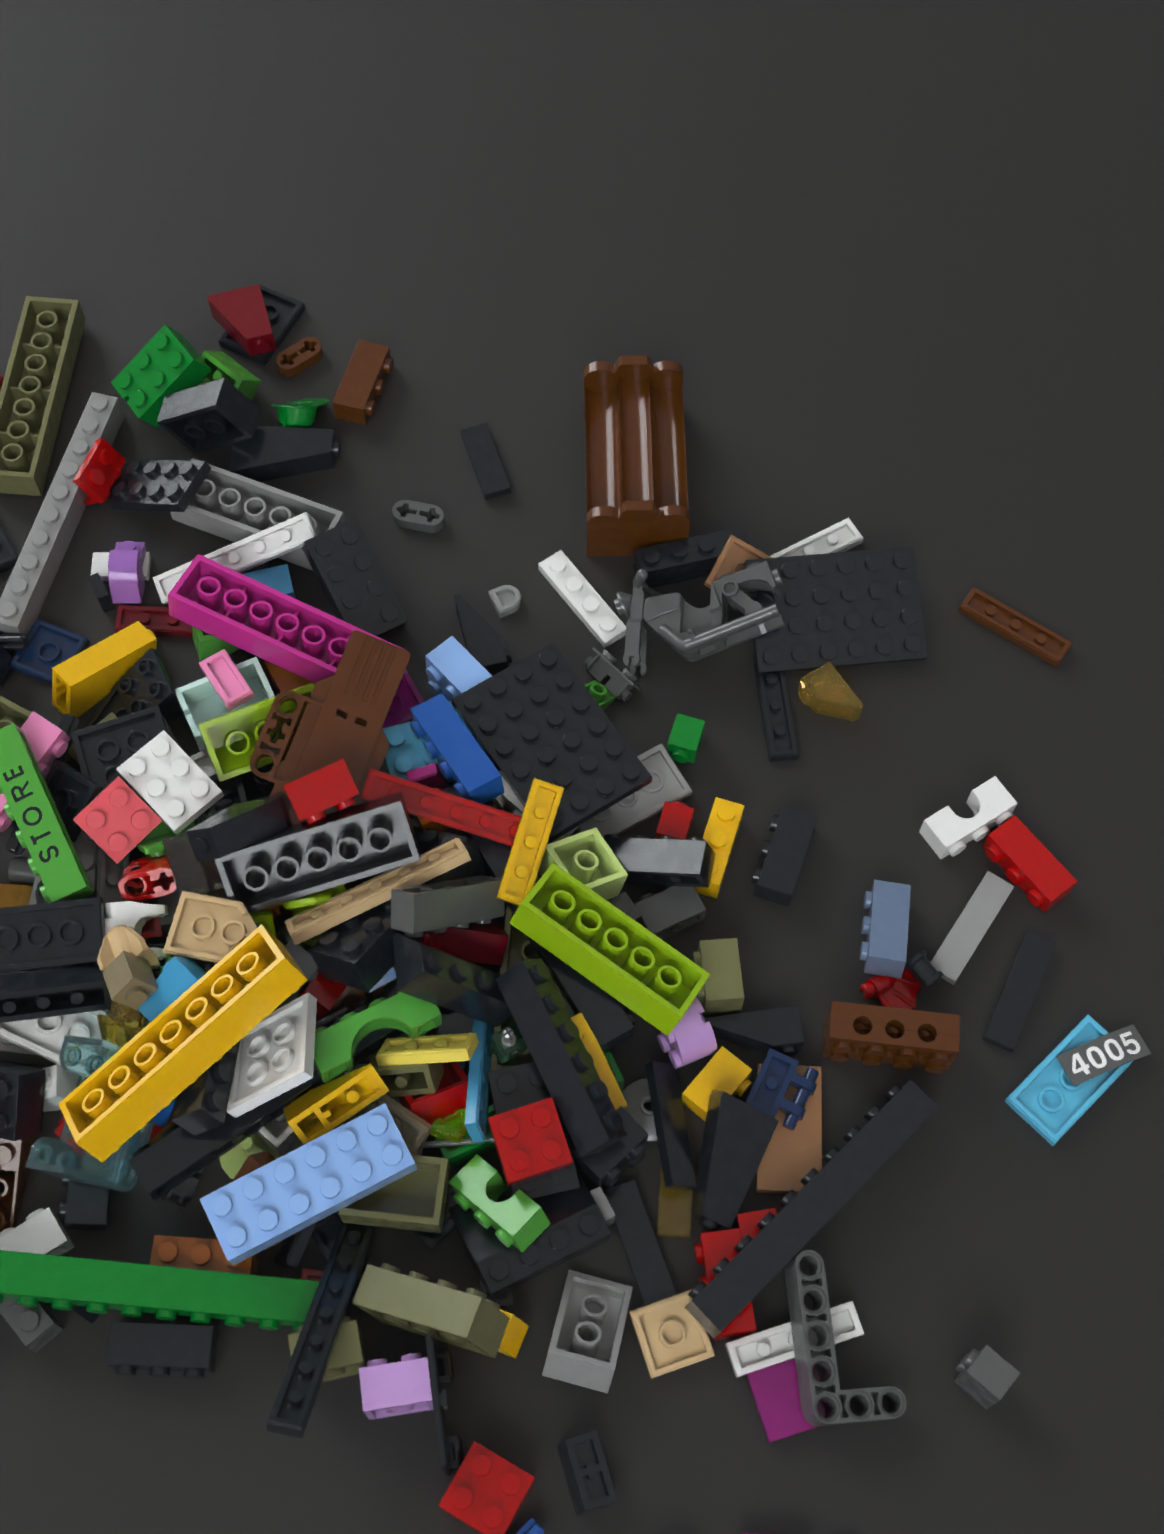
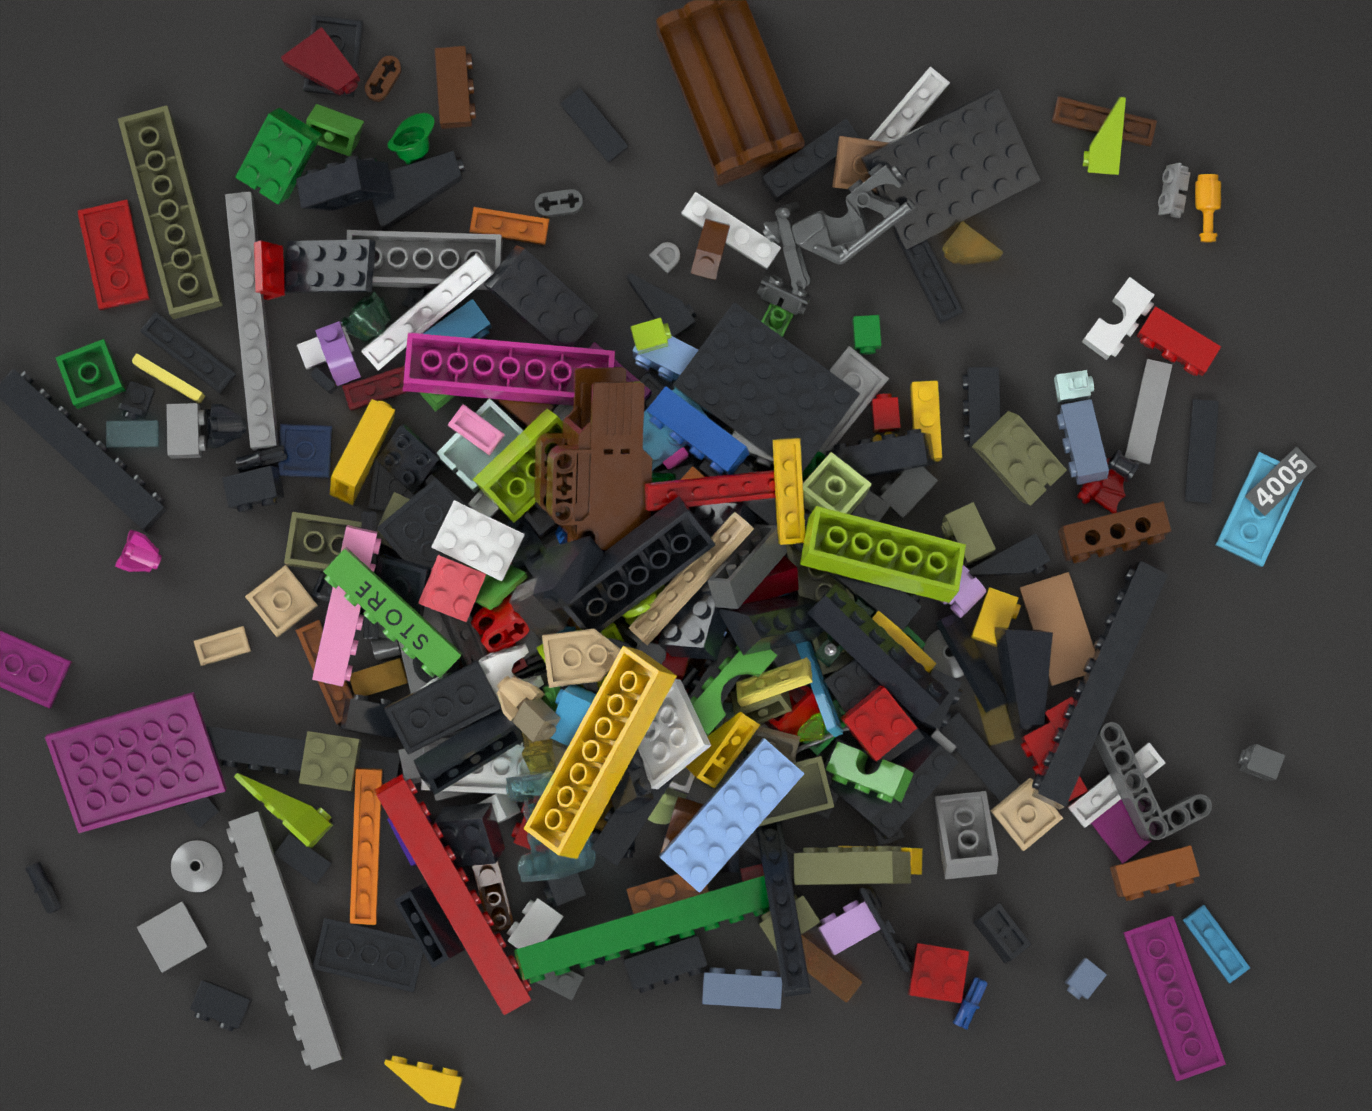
camera: 20 degrees left, 20 degrees up
(172, 545) = (367, 318): none -> clear green cone
(234, 1417) = (742, 988): none -> sand blue brick
(321, 791) = (621, 522): red brick -> none
(350, 1433) = (829, 972): none -> clear orange tile
(376, 527) = (509, 225): none -> orange tile
(448, 643) = (650, 335): none -> lime brick
(552, 602) = (710, 249): none -> reddish brown slope
(772, 1083) = (1037, 603): dark blue plate -> none
(807, 917) = (1019, 458): none -> olive piece
(807, 1467) = (1155, 873): none -> dark orange brick
(895, 866) = (1073, 386): none -> light aqua brick
(1010, 643) = (1106, 146): none -> lime slope
(1063, 722) = (1175, 179): none -> light grey hinge
(1104, 736) = (1208, 200): none -> light orange piece

